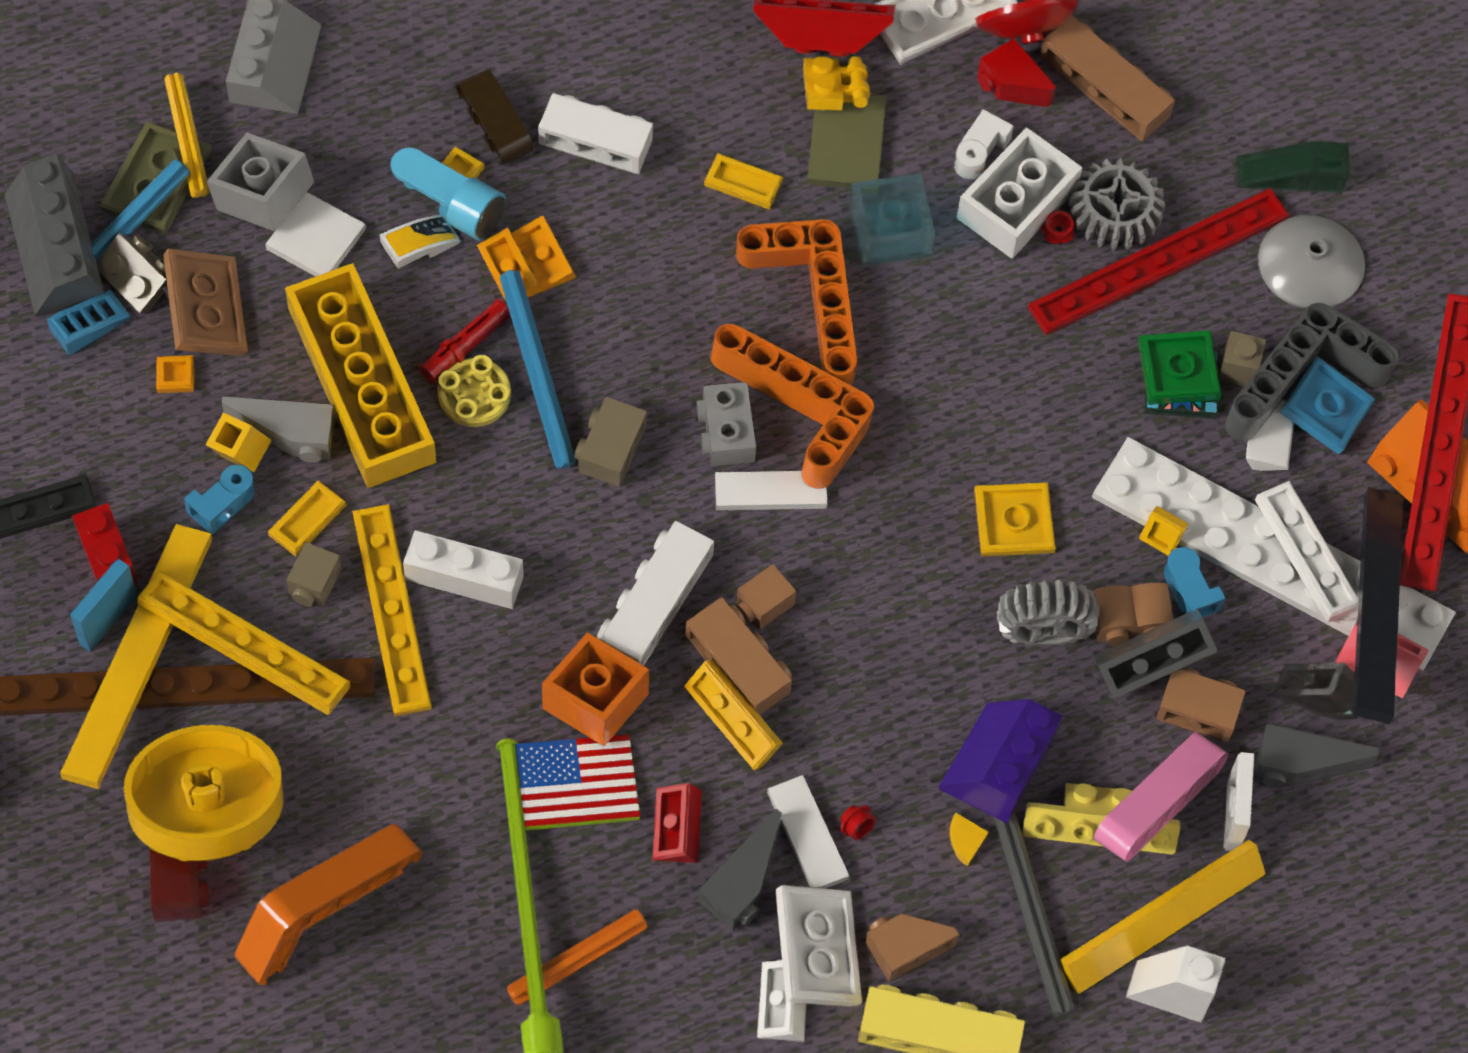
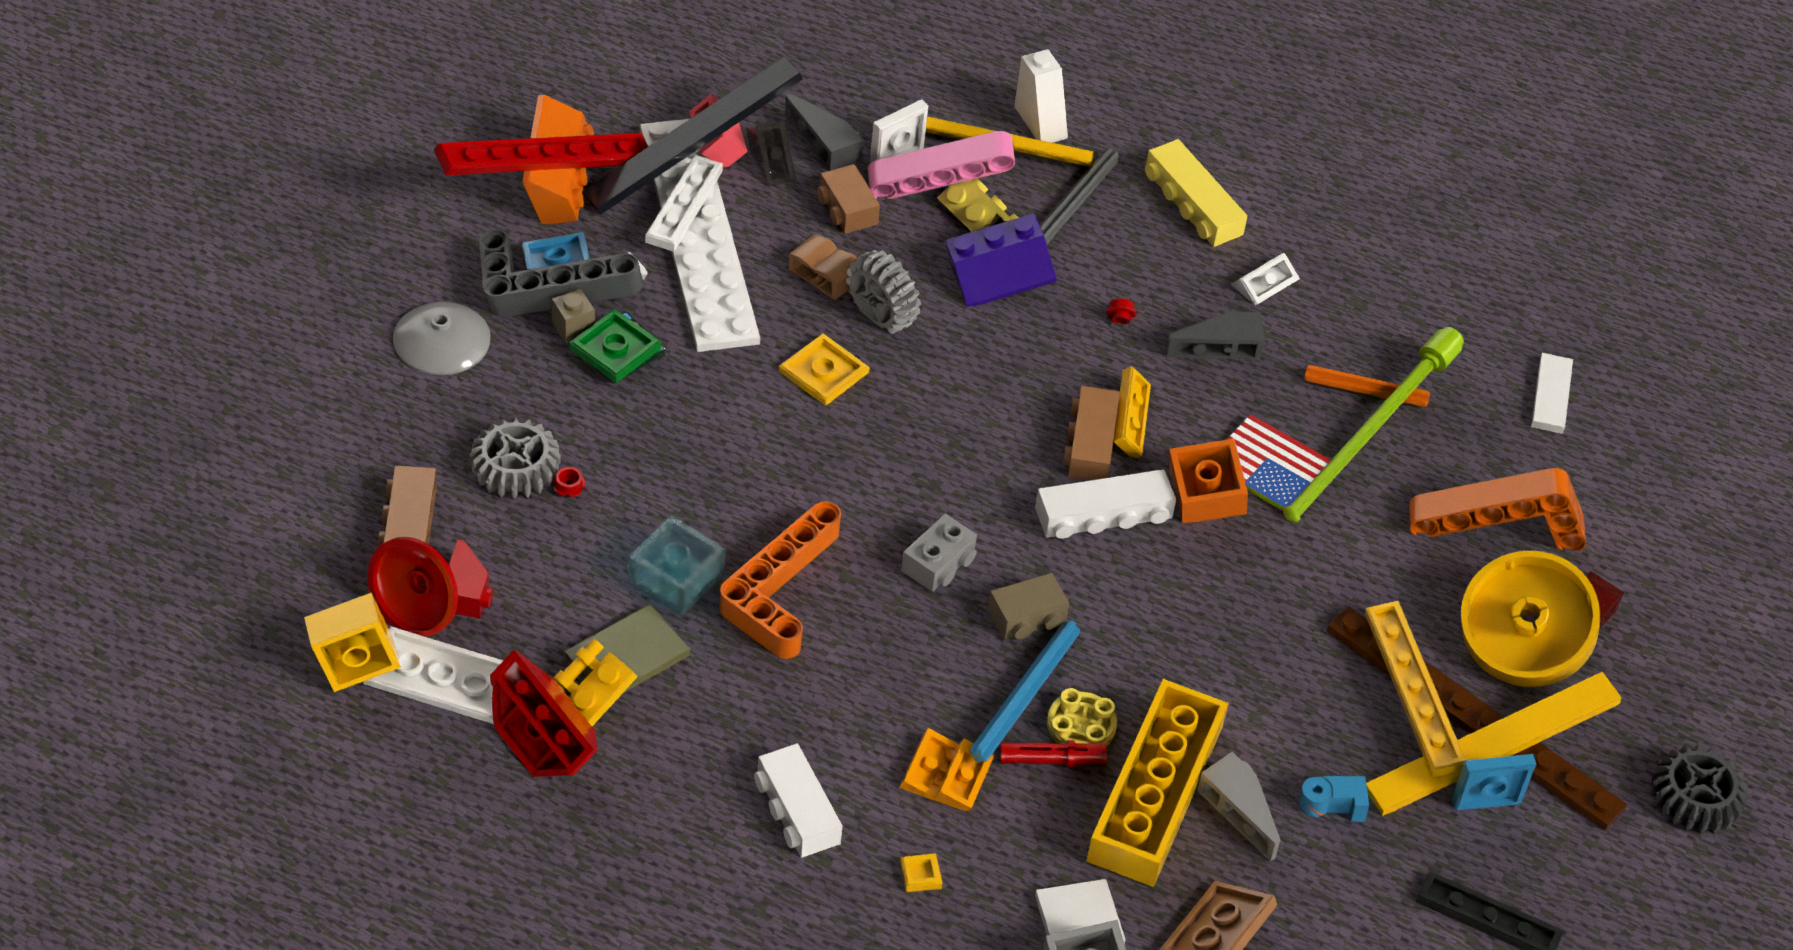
camera: 135 degrees left, 15 degrees down
(101, 540) = (1454, 828): red brick -> none
(175, 374) = (1287, 914): light orange tile -> none
(238, 442) = (1294, 809): yellow brick -> none
(307, 518) = (1284, 743): yellow tile -> none
(313, 575) = (1320, 697): dark tan brick -> none
(392, 610) = (1283, 646): yellow tile -> none
(419, 238) = (1009, 842): slope -> none
(463, 569) = (1216, 615): white brick -> none
(464, 201) = (953, 829): medium azure piece -> none
(495, 115) = (854, 878): dark brown beam -> none
(677, 823) = (1230, 399): red slope -> none
(743, 181) = (732, 690): yellow tile -> none
(765, 597) = (1037, 448): medium nougat brick -> none
(766, 491) = (948, 498): white tile -> none
(803, 387) = (858, 493): orange beam -> none
(808, 833) = (1154, 333): white tile -> none
(818, 946) = (1219, 275): white tile -> none
(907, 943) = (1164, 237): medium nougat slope -> none
(966, 838) = (1065, 259): yellow tile -> none
(979, 142) = (549, 566): white leg -> none
(1018, 192) = (572, 509): white brick -> none
(1155, 653) = (847, 220): dark grey brick -> none
(1157, 261) = (562, 422): red tile -> none
(1163, 530) = (749, 284): yellow tile -> none
(1189, 585) = (775, 247): dark azure leg -> none
(1297, 167) = (373, 379): clear green slope -> none

